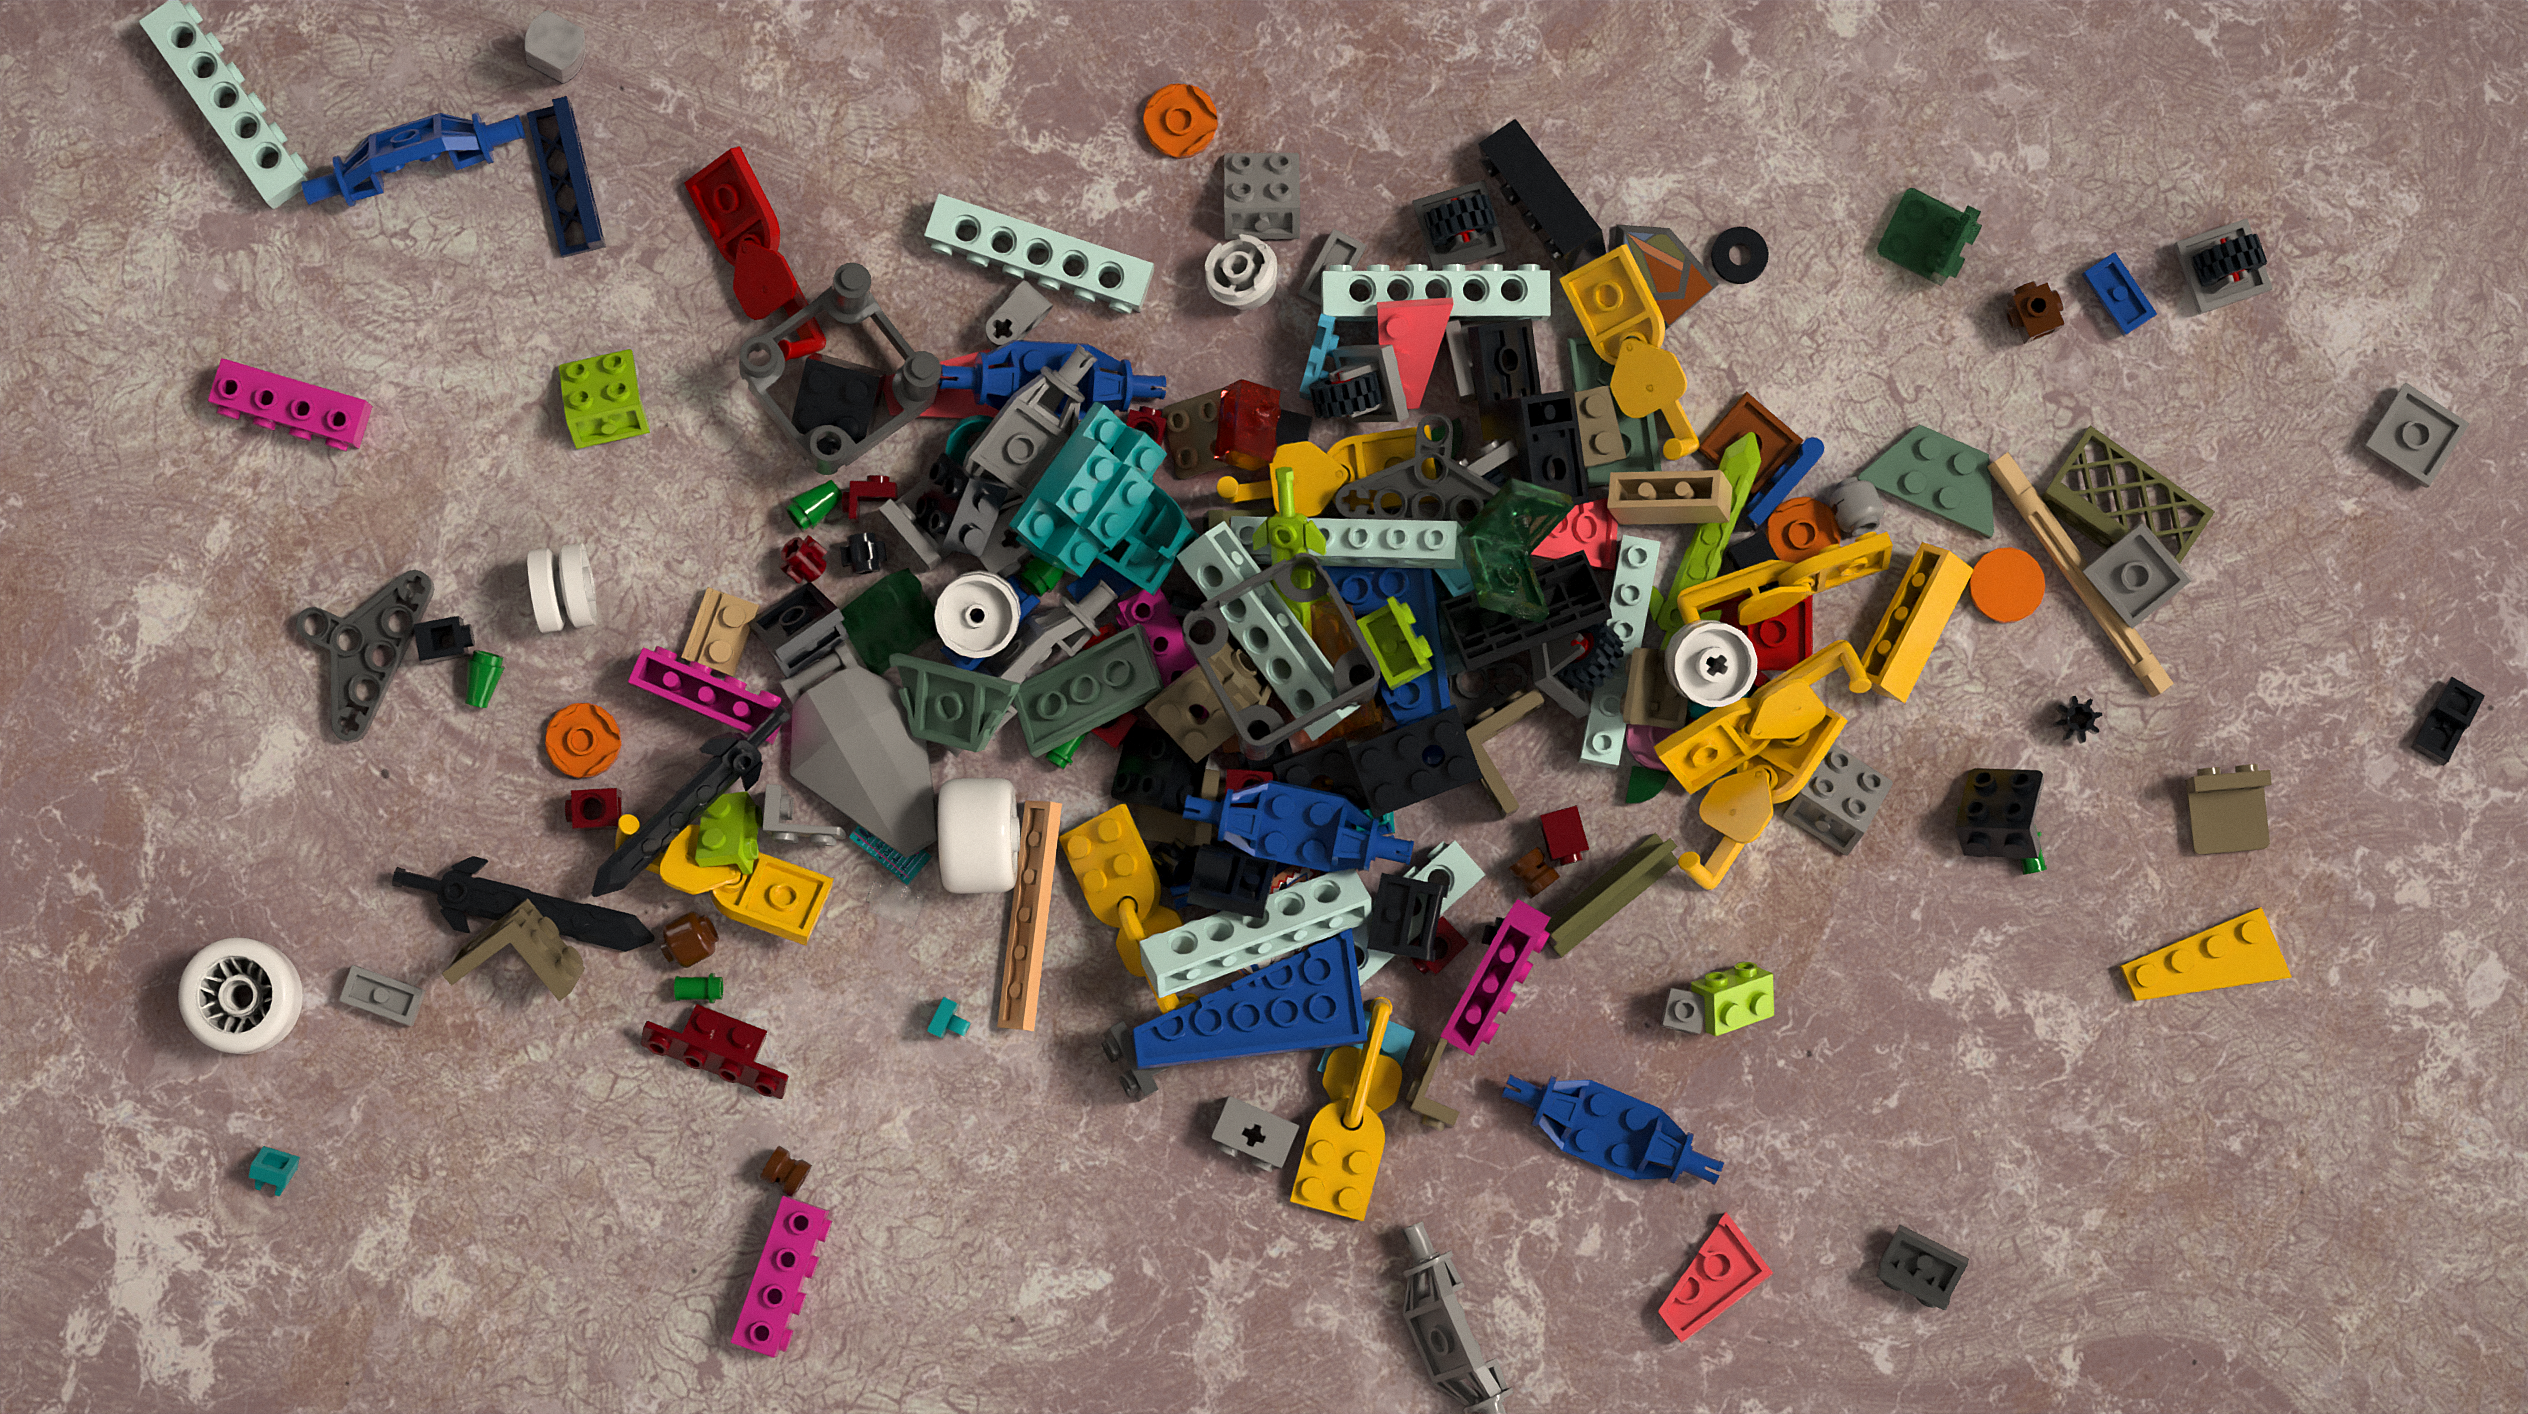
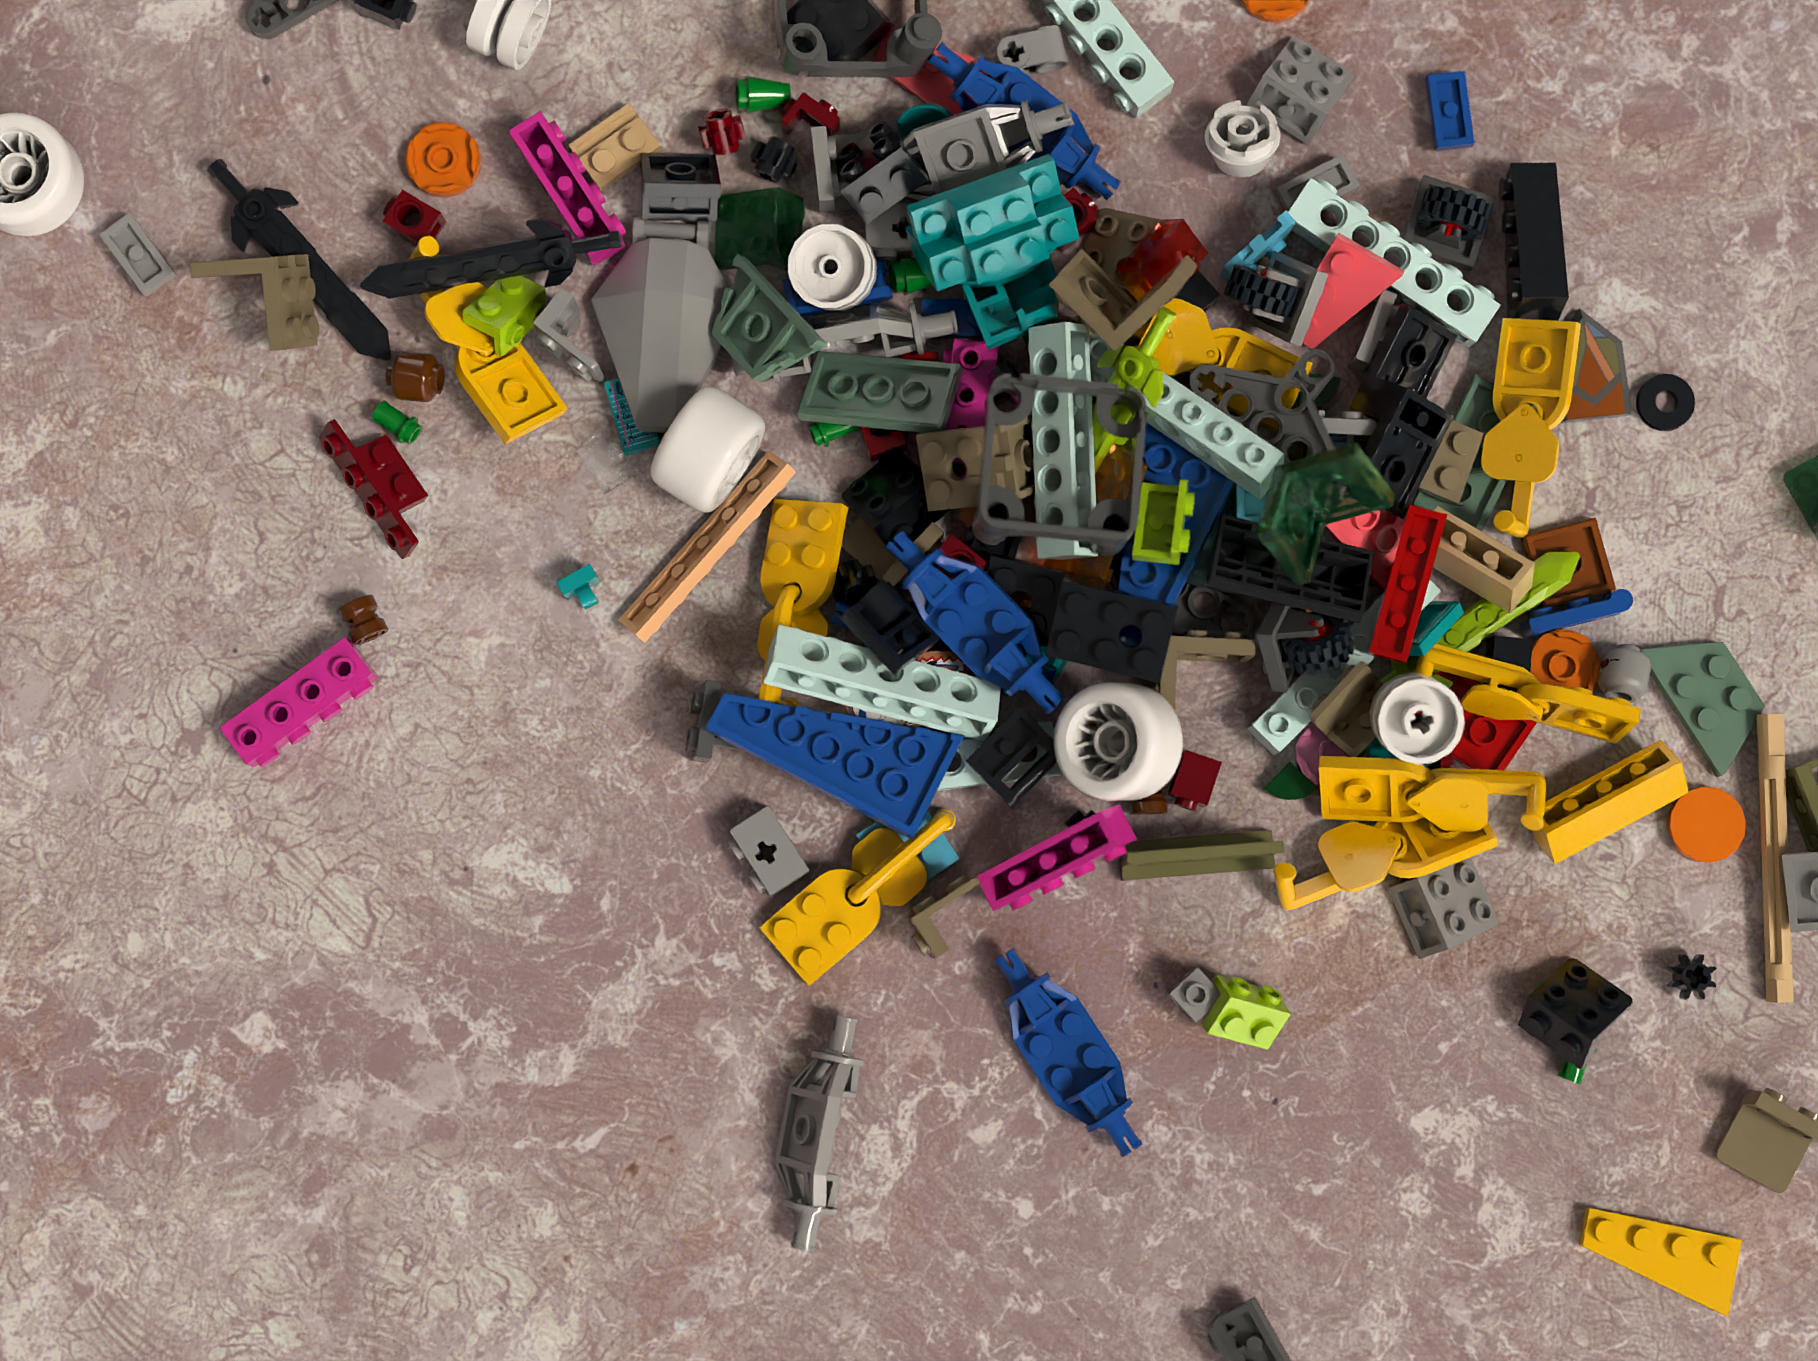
camera: 30 degrees right, 0 degrees up
(482, 677) = (396, 53): green cone -> none
(1227, 495) = (1105, 306): none -> dark tan bracket
(1397, 131) = (1449, 111): none -> blue plate
(1454, 942) = (1041, 809): dark red brick -> none
(1464, 866) = (1093, 747): none -> white wheel
(1629, 556) = (1407, 584): none -> red plate
(1669, 580) = (1433, 624): none -> teal tile
(1714, 1281) = (1069, 1236): coral wing -> none

